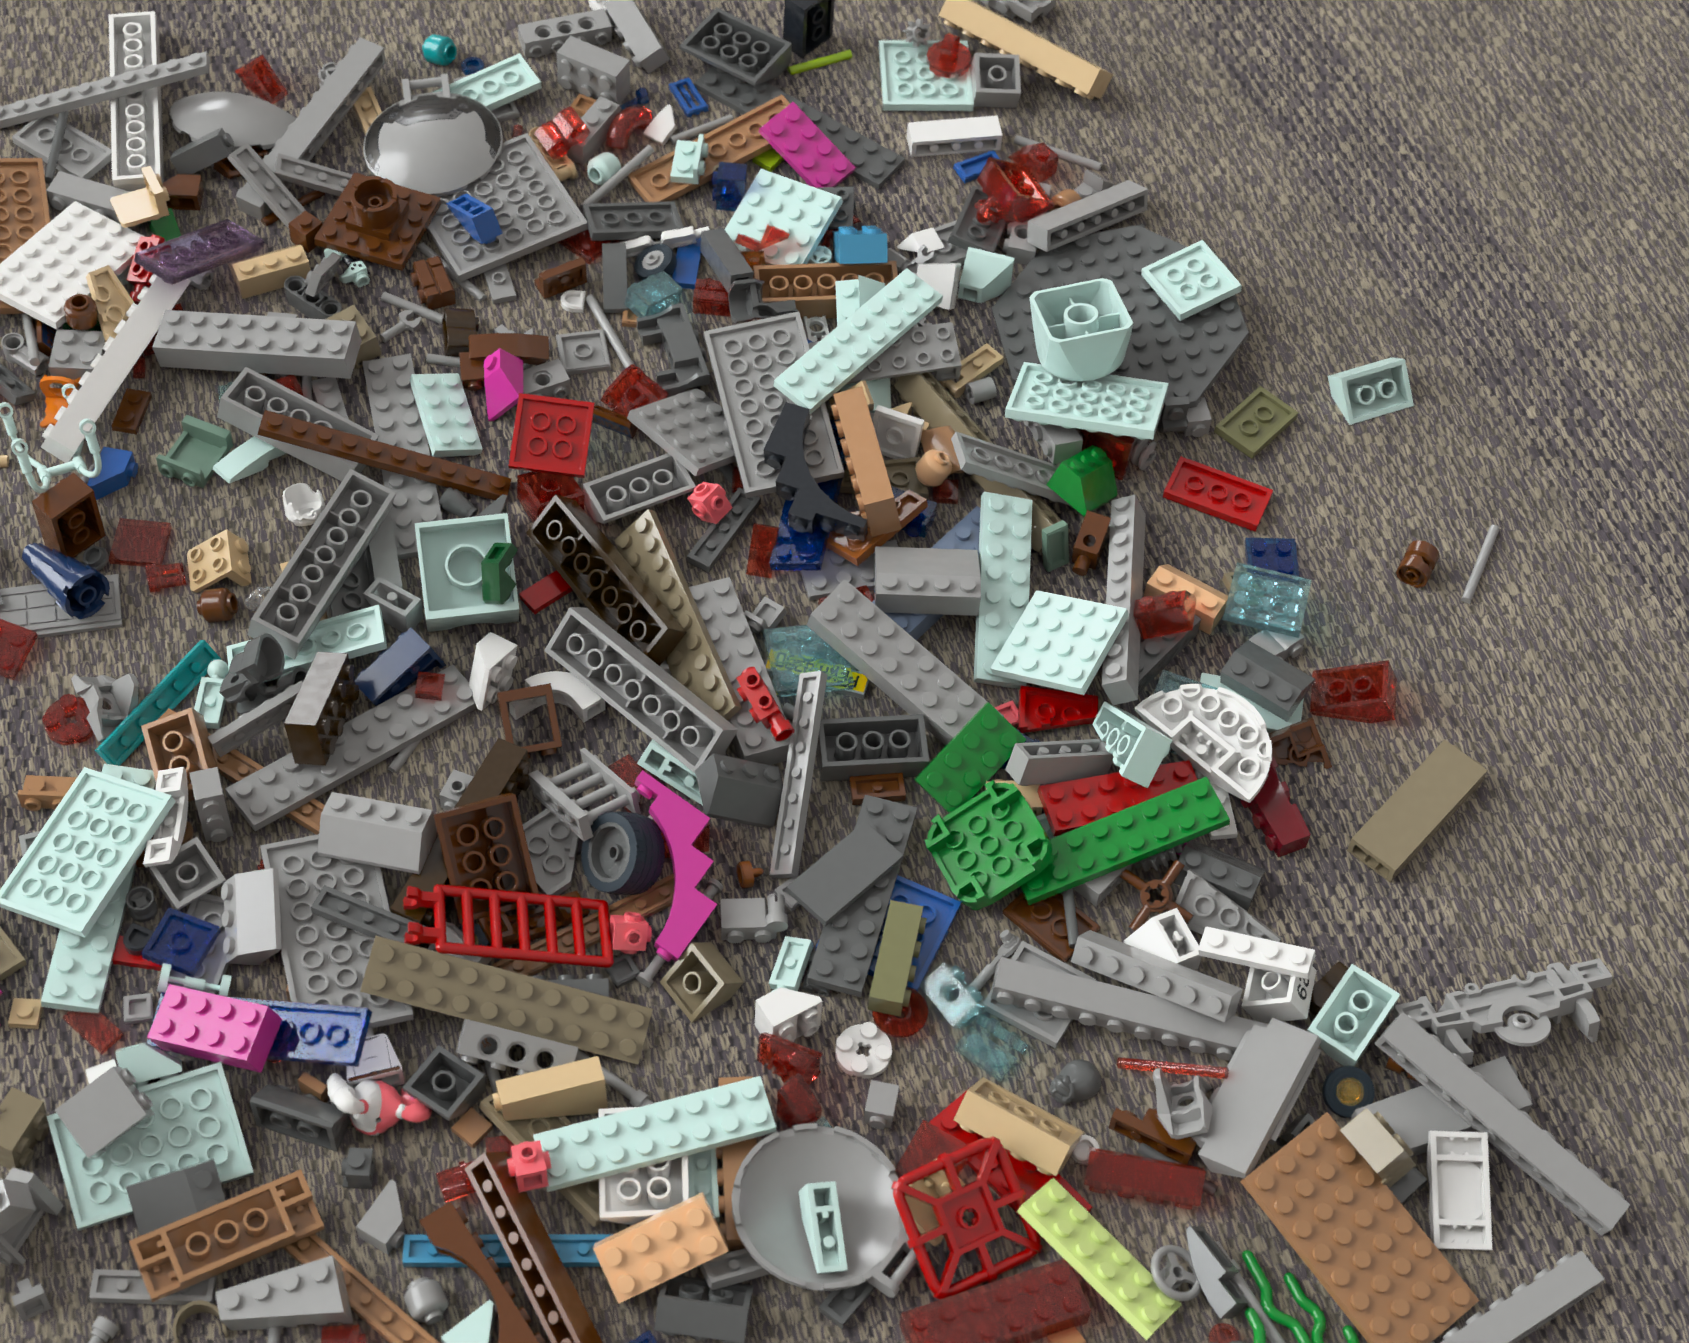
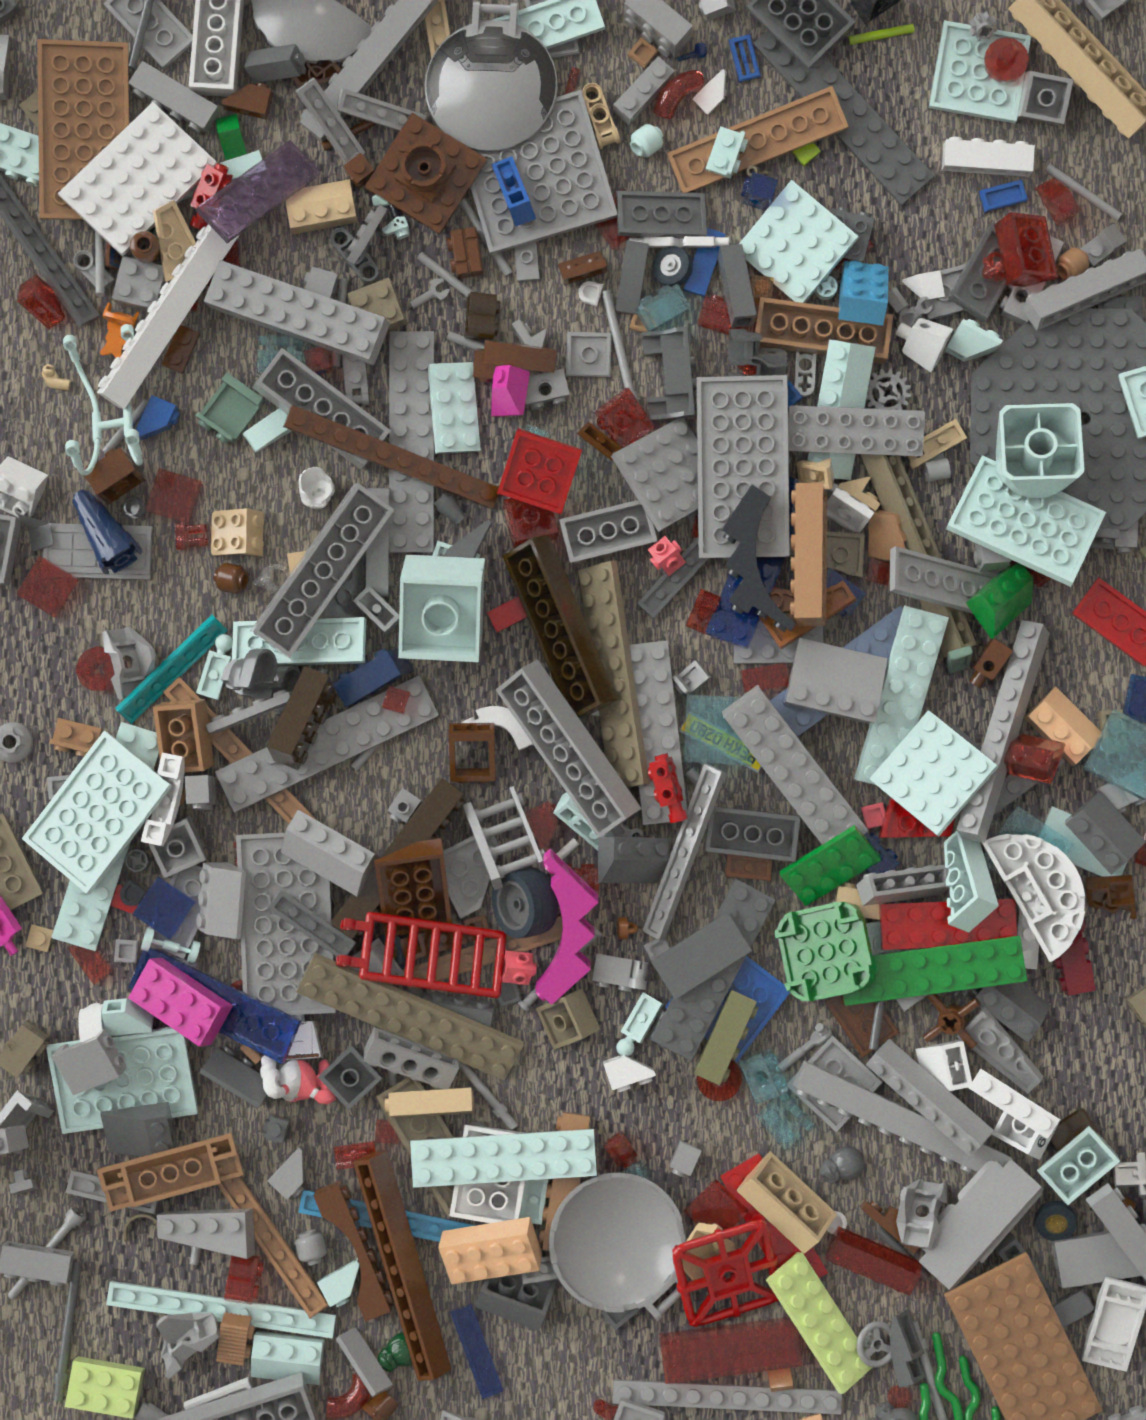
camera: 15 degrees right, 30 degrees up
(144, 203) = (211, 122): bracket -> none
(472, 1127) = (367, 1107): medium nougat tile -> none
(492, 669) = (448, 698): white slope -> none
(495, 580) = (461, 631): dark green slope -> none
(529, 1165) = (405, 1181): coral brick -> none
(562, 133) = (612, 105): clear red brick -> none
(619, 176) = (658, 155): light grey bar -> none
(702, 129) = (748, 102): light grey bar -> none
(769, 237) = (782, 269): clear red slope -> none
(788, 1058) = (624, 1113): clear red slope -> none
(806, 148) = (841, 156): dark pink plate -> none
(823, 1226) = (616, 1260): light aqua slope -> none
(858, 341) = (834, 419): light aqua plate -> none
(866, 1036) = (677, 1115): white plate -> none
(933, 468) = (871, 557): light nougat head -> none
(1173, 1067) = (920, 1176): clear red bar -> none
(1375, 1142) = (1059, 1290): brick -> none

